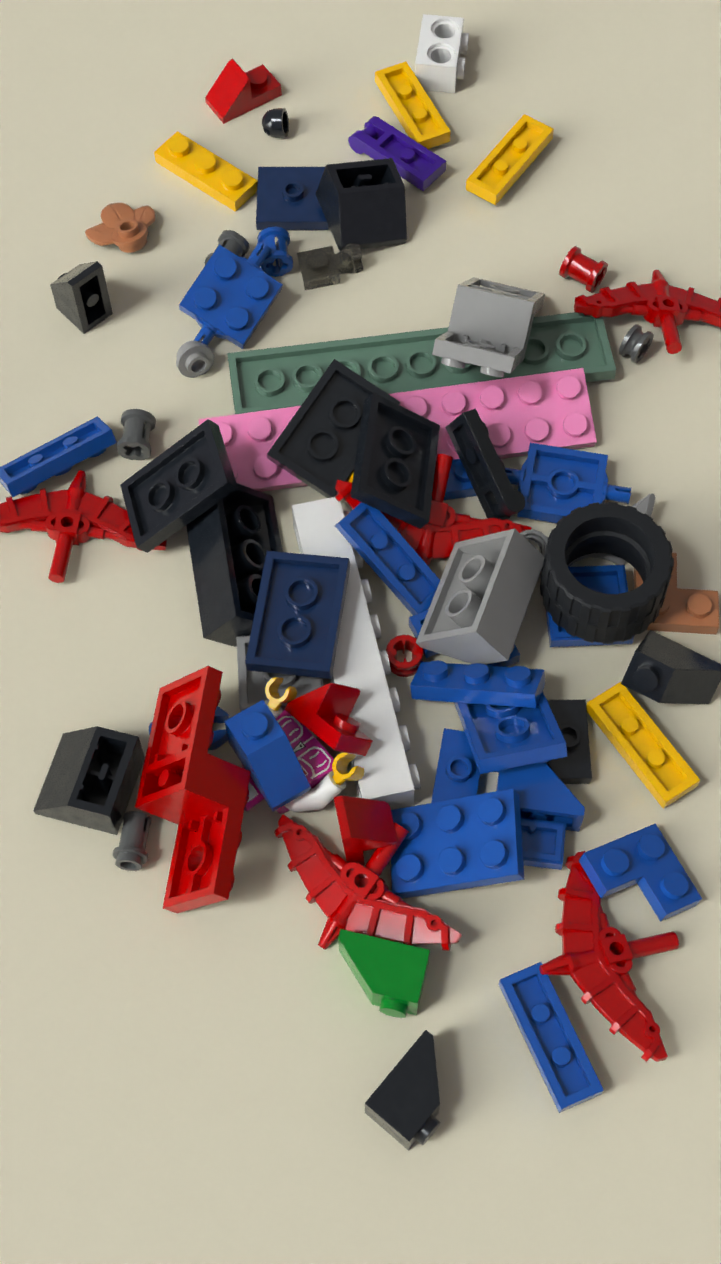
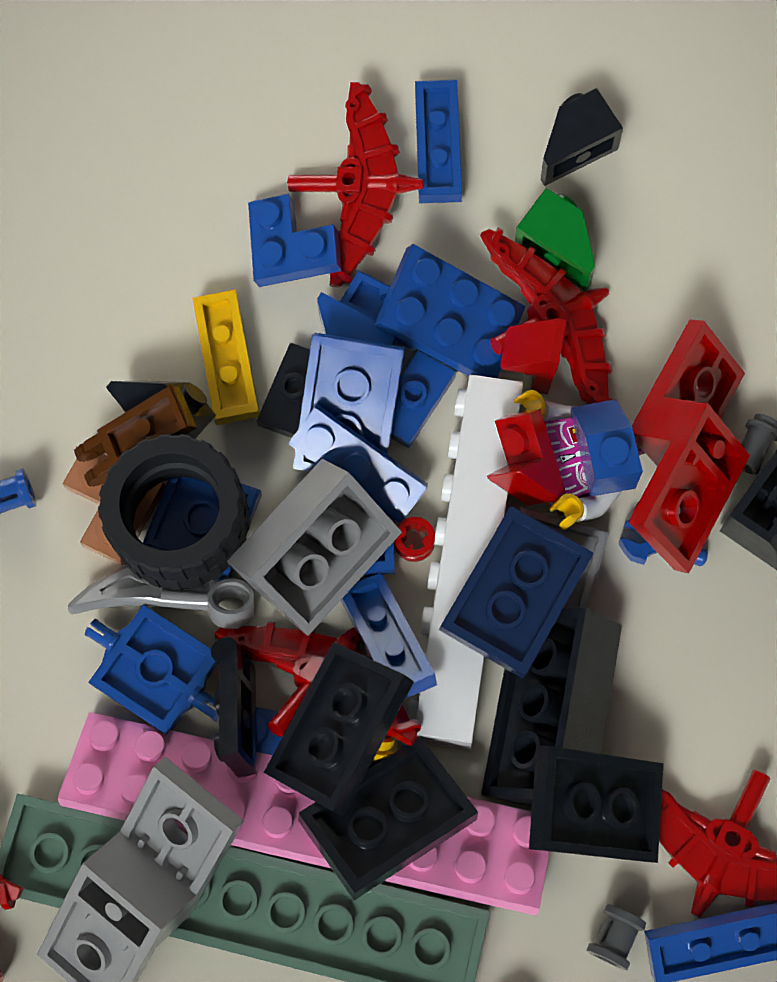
camera: 155 degrees left, 10 degrees up
(670, 622) = (156, 416): none -> reddish brown hinge

